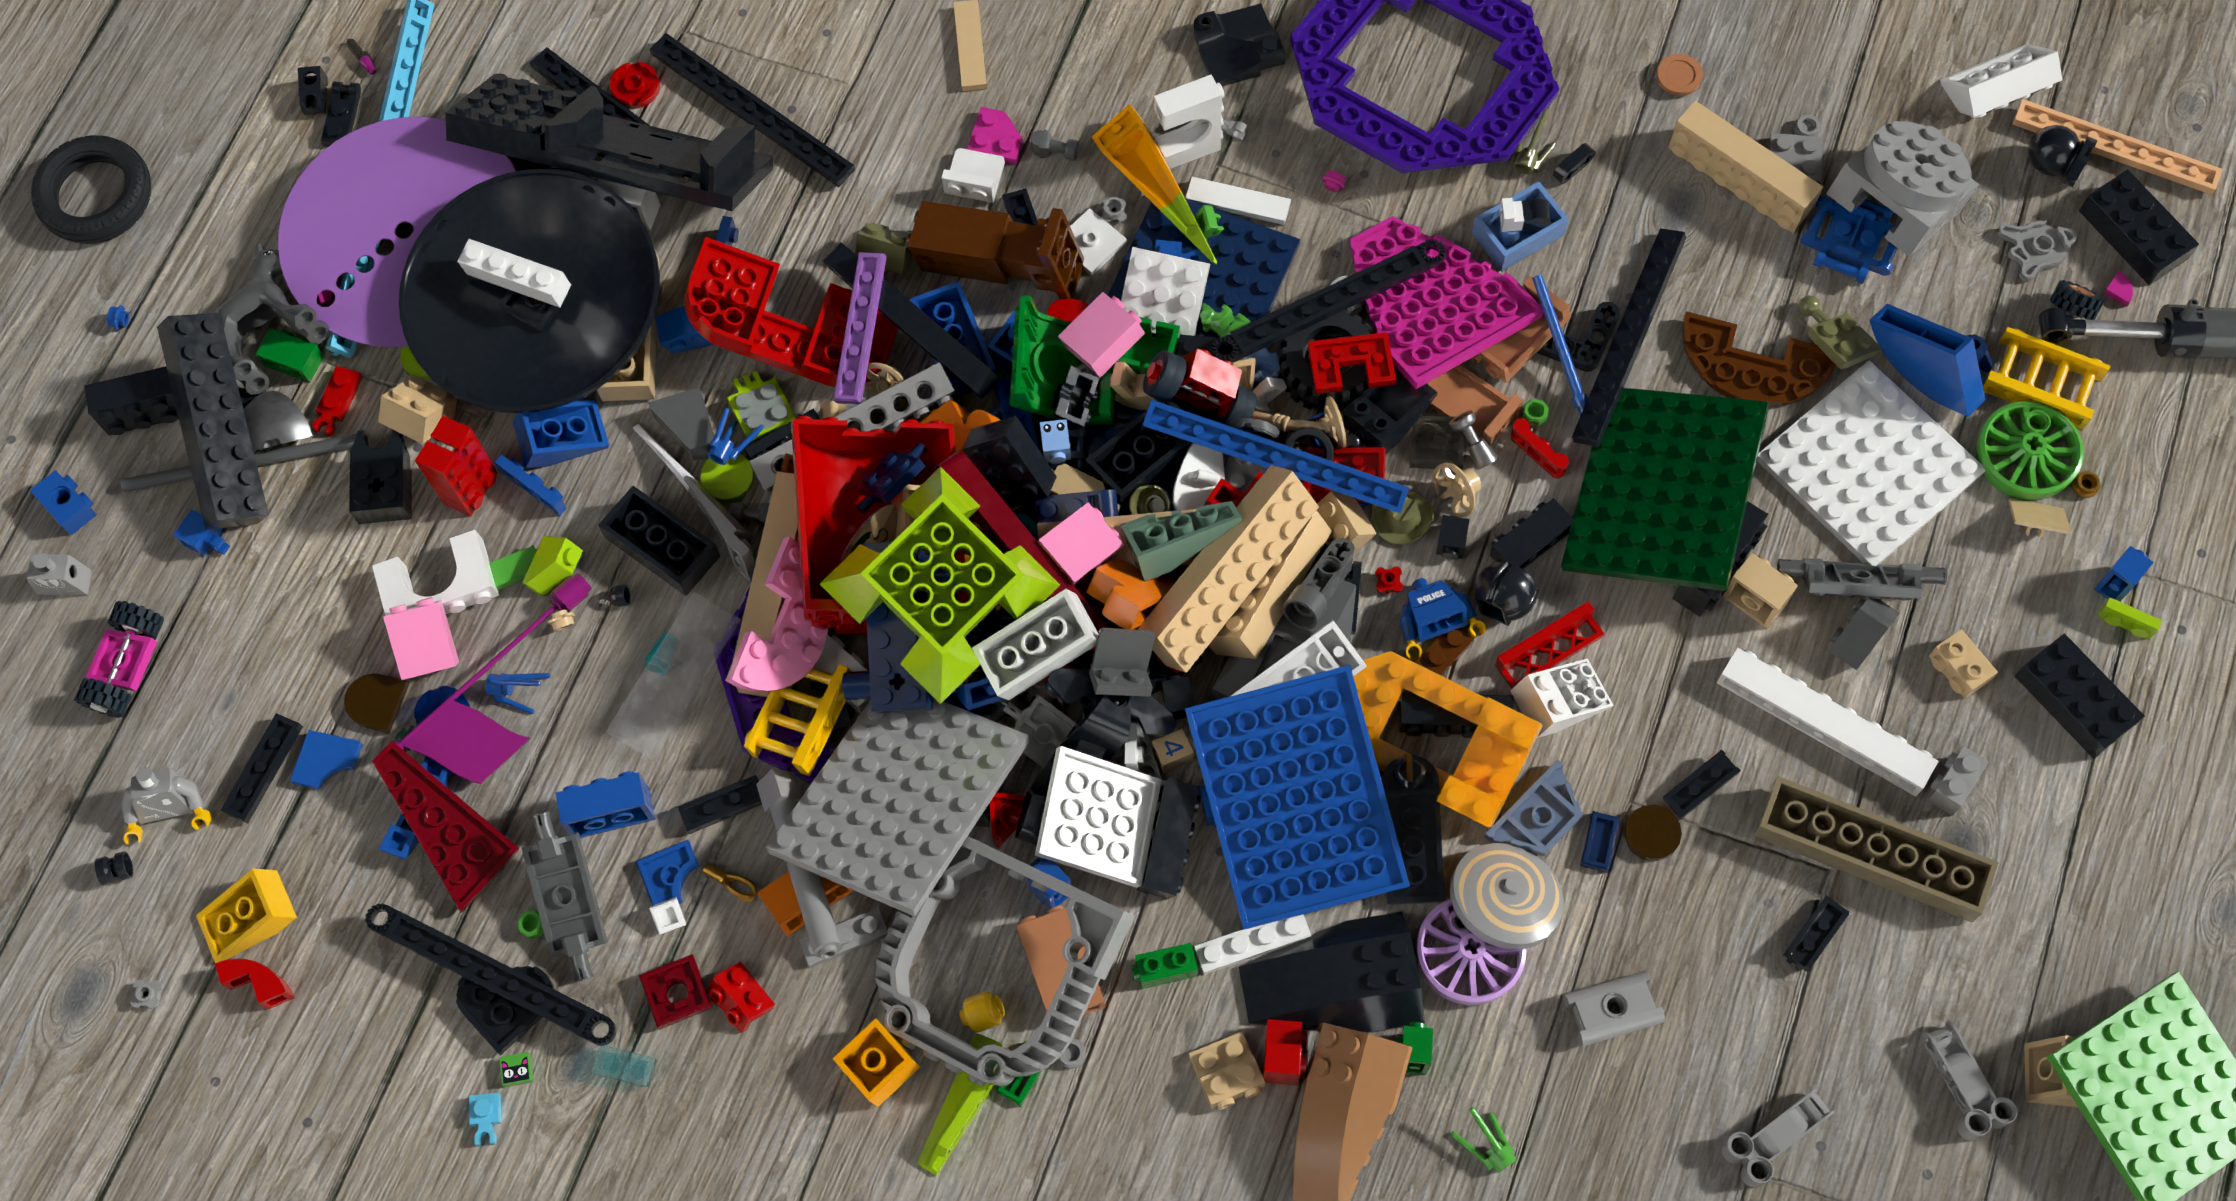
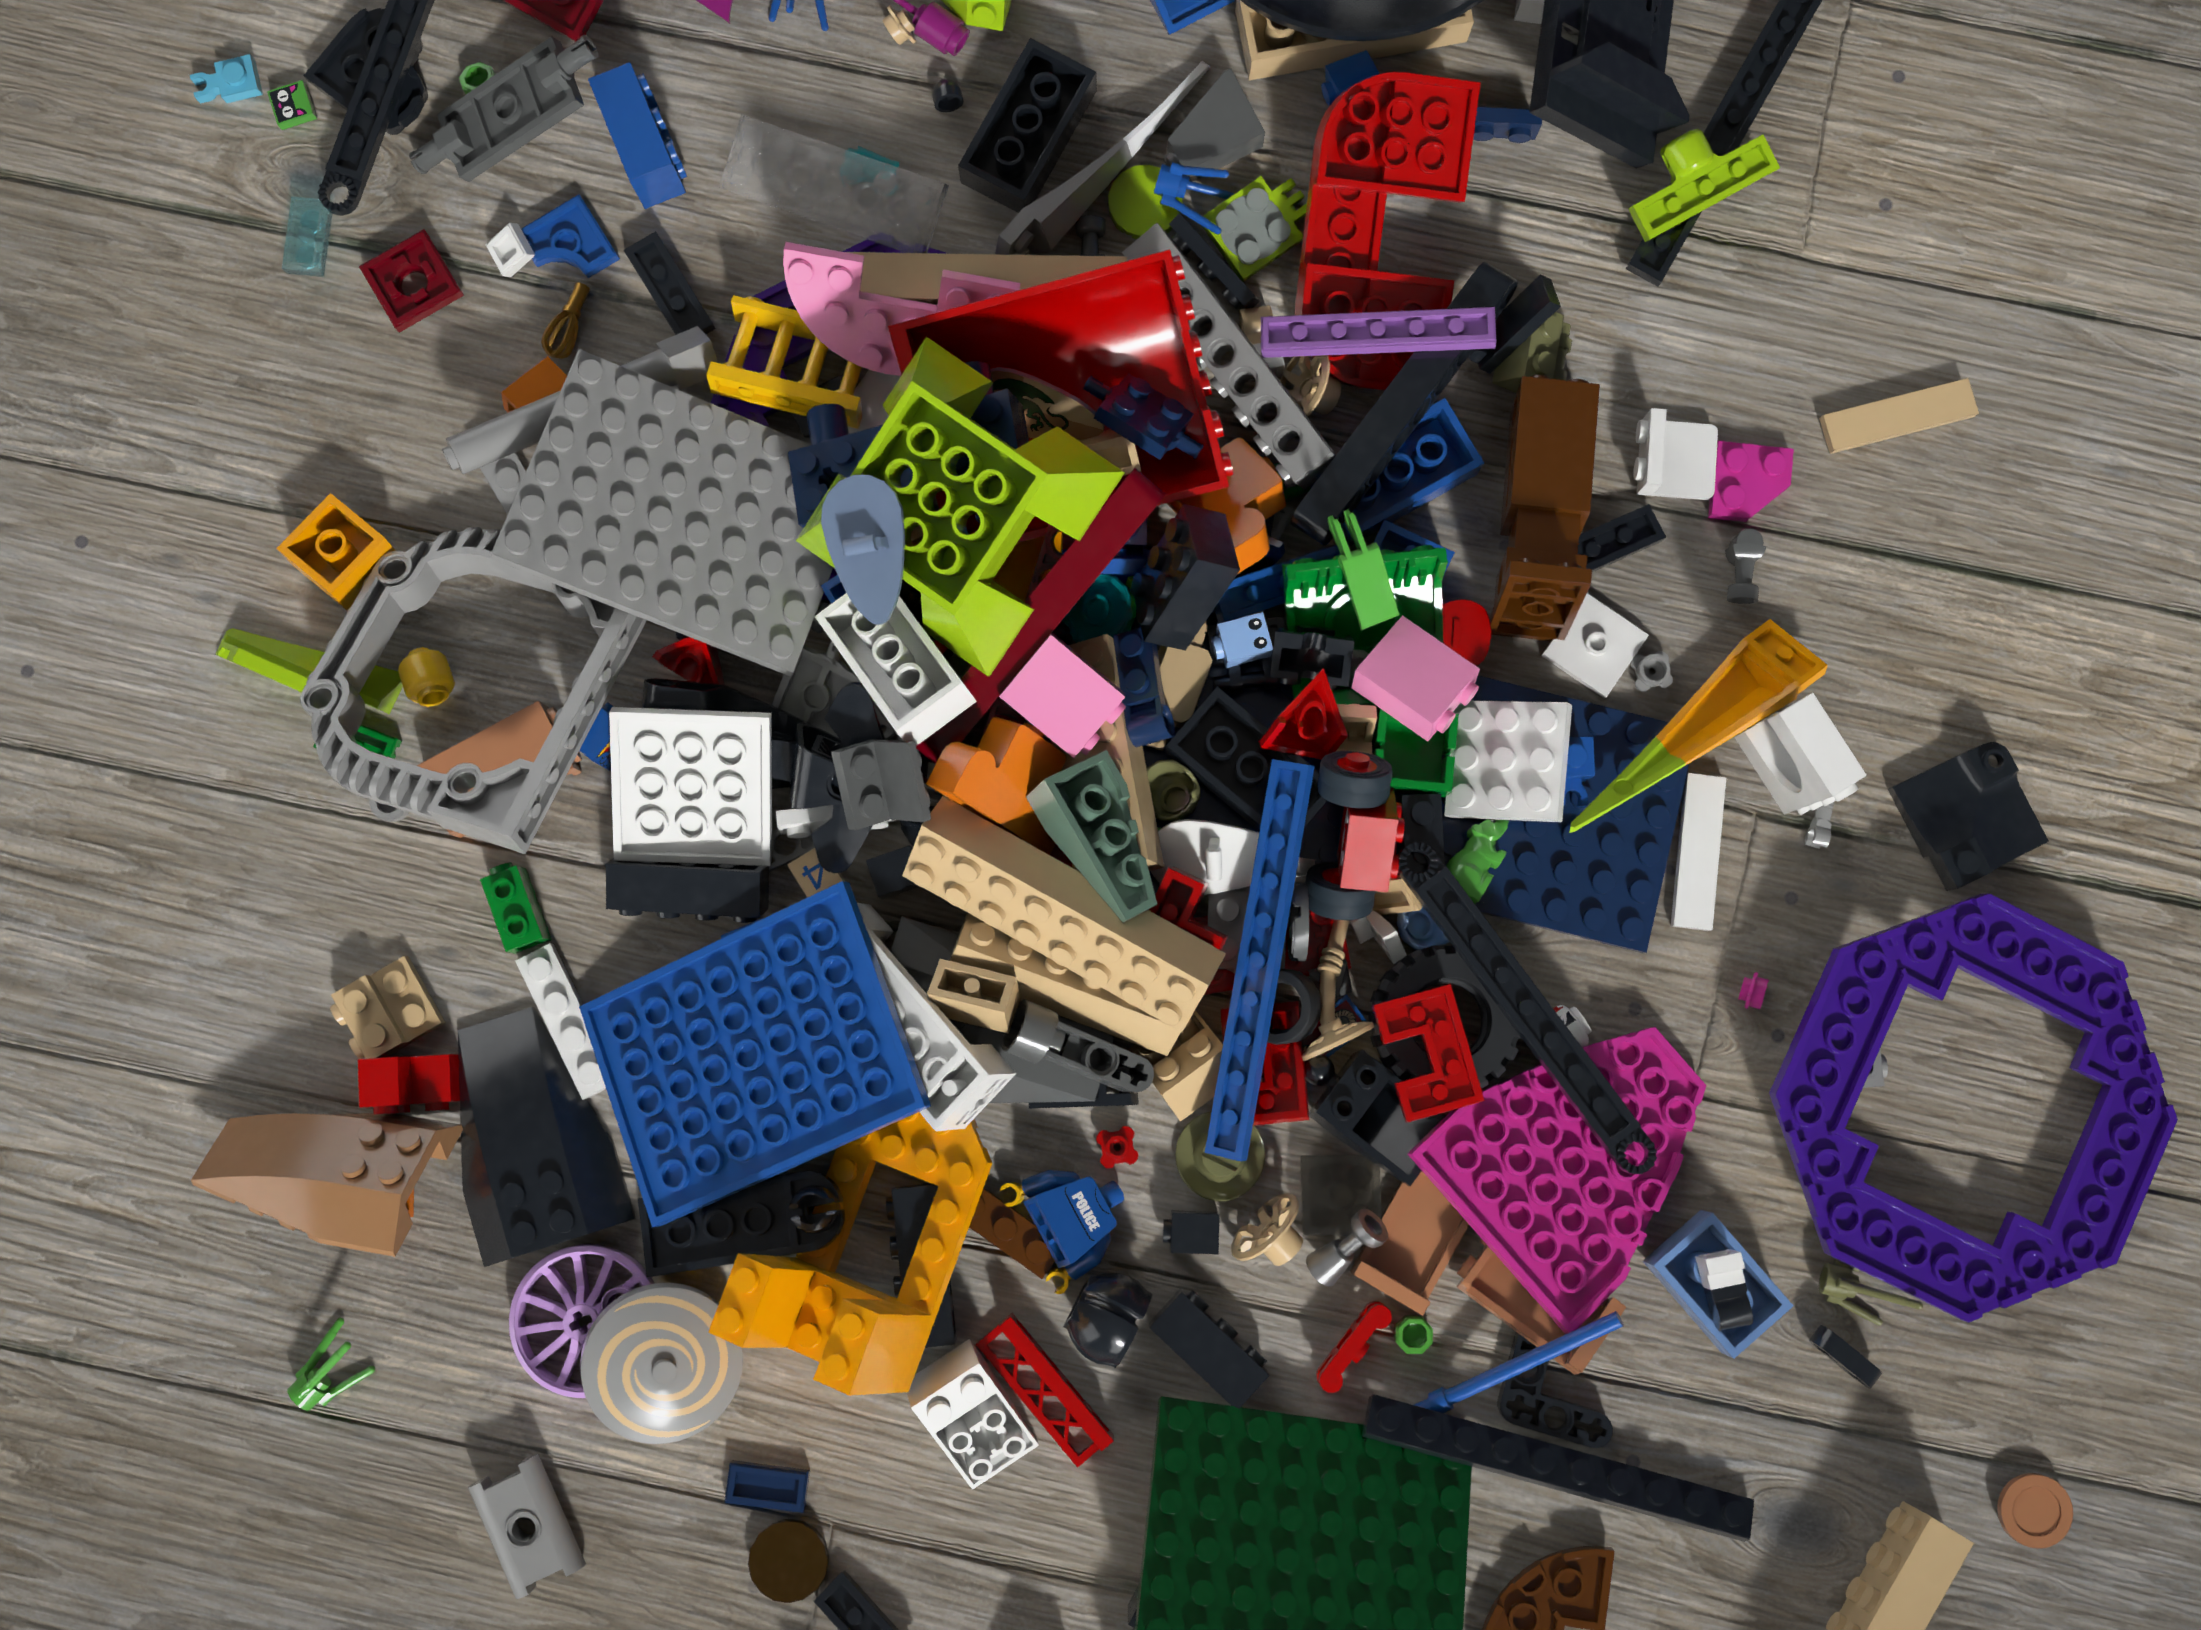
camera: 80 degrees right, 15 degrees up
(739, 996) = (414, 363): red bracket -> none
(792, 129) = (1700, 180): none -> lime plate
(863, 239) = (1519, 322): none -> black hinge
(963, 624) = (866, 543): none -> sand blue shield
(1026, 346) = (1364, 574): none -> bright green arm
(1120, 402) = (1309, 724): none -> red slope
(1208, 221) = (1642, 808): bright green tile -> none
(1275, 634) = (975, 995): none -> tan brick
(1421, 1039) = (431, 1257): green brick -> none
(1539, 815) = (790, 1406): sand blue wing -> none

